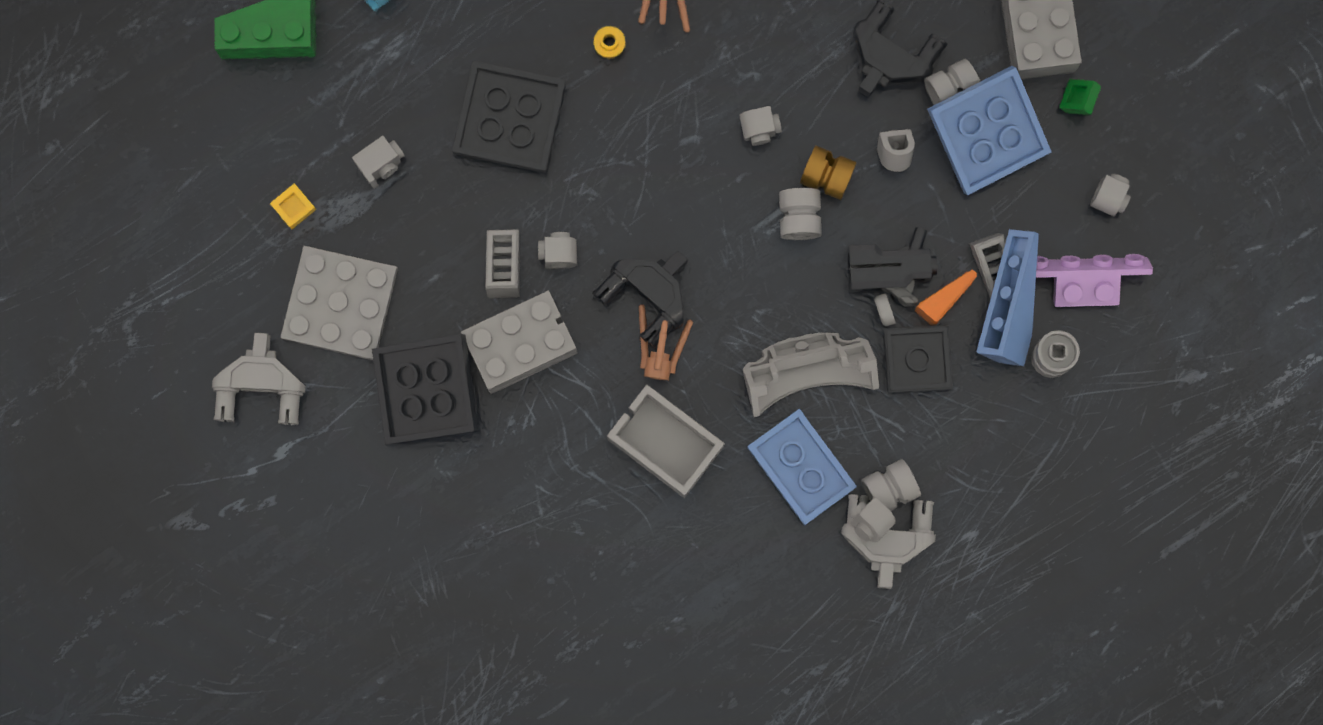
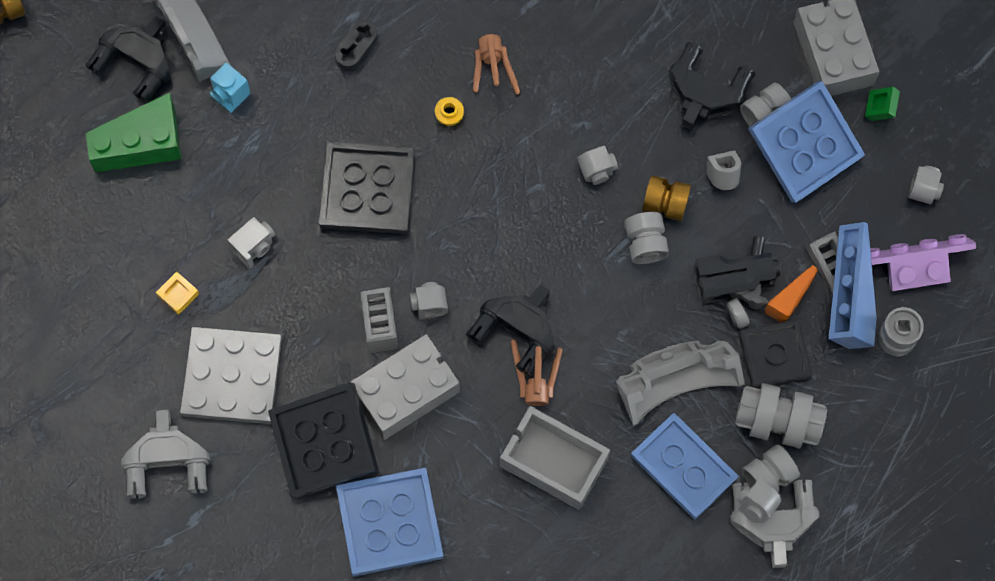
camera: 10 degrees left, 10 degrees down
(483, 484) = (389, 522): none -> medium blue plate
(926, 434) = (796, 418): none -> light grey piece

